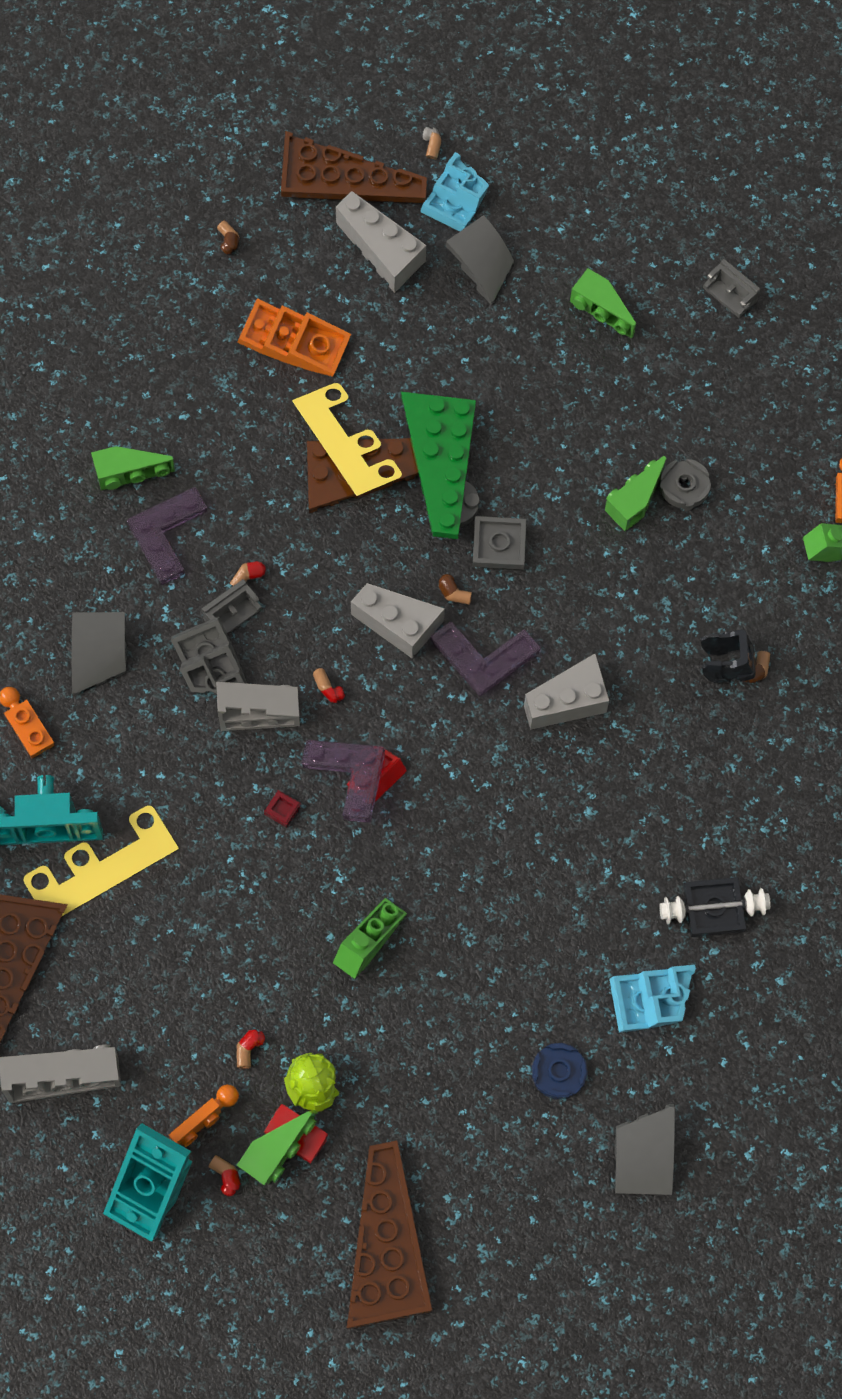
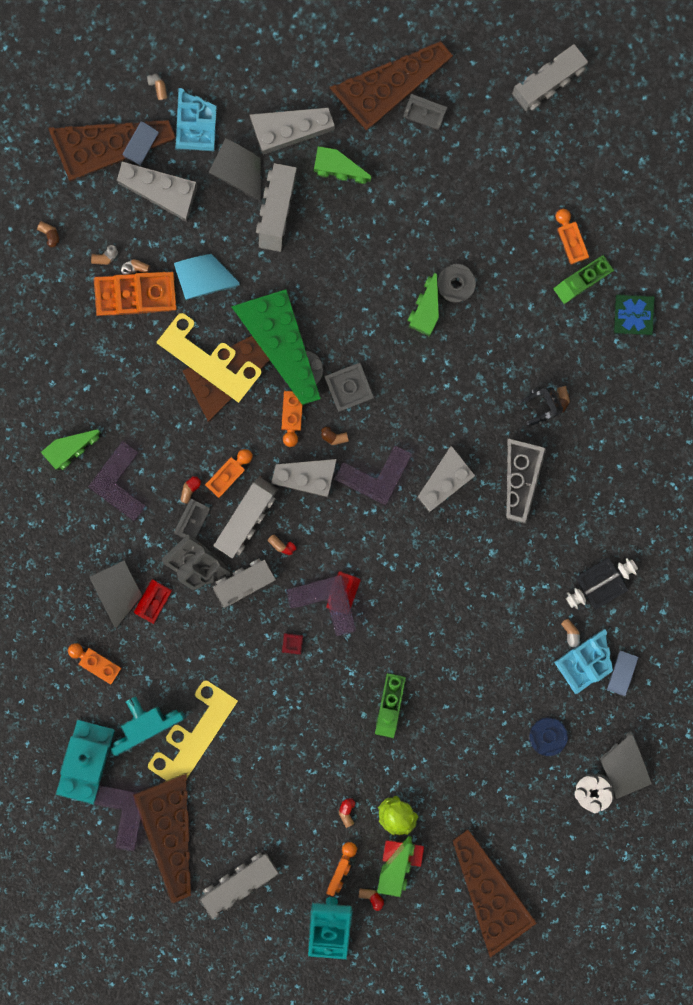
camera: 25 degrees left, 20 degrees up
(135, 684) = (152, 601): none -> red slope
(280, 289) = (107, 257): none -> arm
(299, 631) = (245, 517): none -> light grey wedge
(304, 576) = (229, 473): none -> orange plate
(307, 306) = (134, 266): none -> arm
(382, 183) = (140, 143): none -> sand blue slope
(384, 349) = (203, 276): none -> medium azure slope
(411, 548) = (291, 418): none -> orange plate
(506, 314) = (276, 206): none -> light grey wedge
(565, 240) = (290, 127): none -> light grey wedge
(604, 1173) = (593, 782): none -> plate
(649, 952) = (573, 634): none -> arm
(669, 732) = (522, 478): none -> light grey wedge
(693, 1031) = (622, 673): none -> sand blue slope
(696, 245) = (384, 87): none -> reddish brown wing

